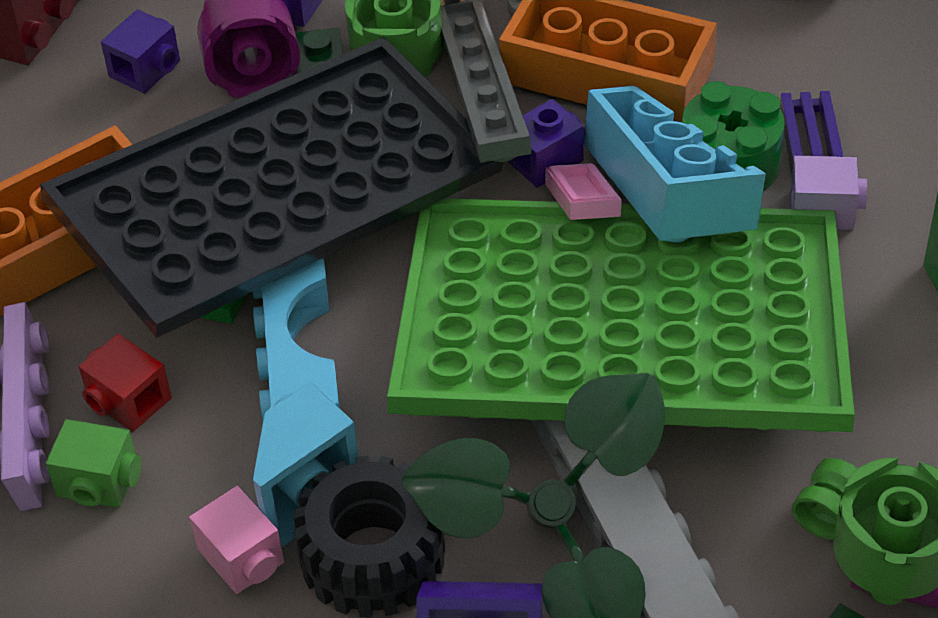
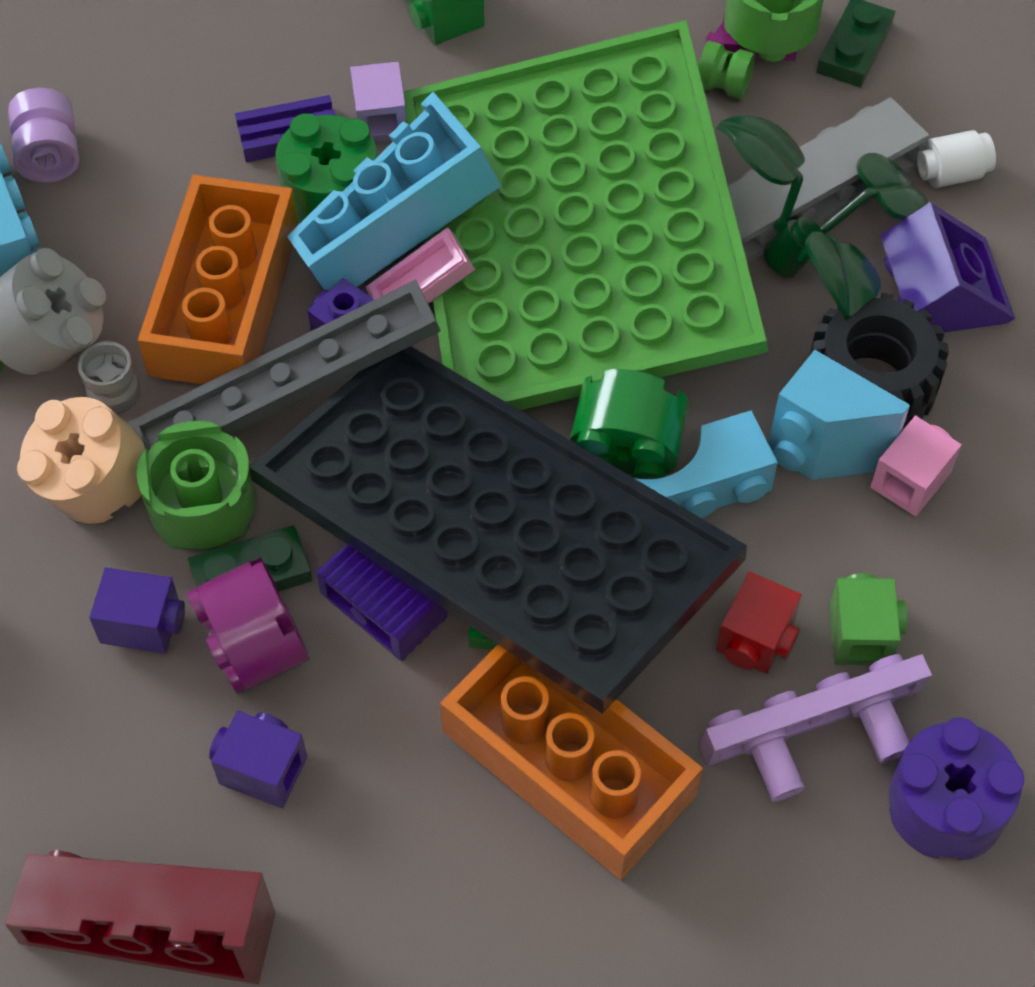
camera: 105 degrees left, 10 degrees up
(352, 307) = (631, 422): none -> green brick

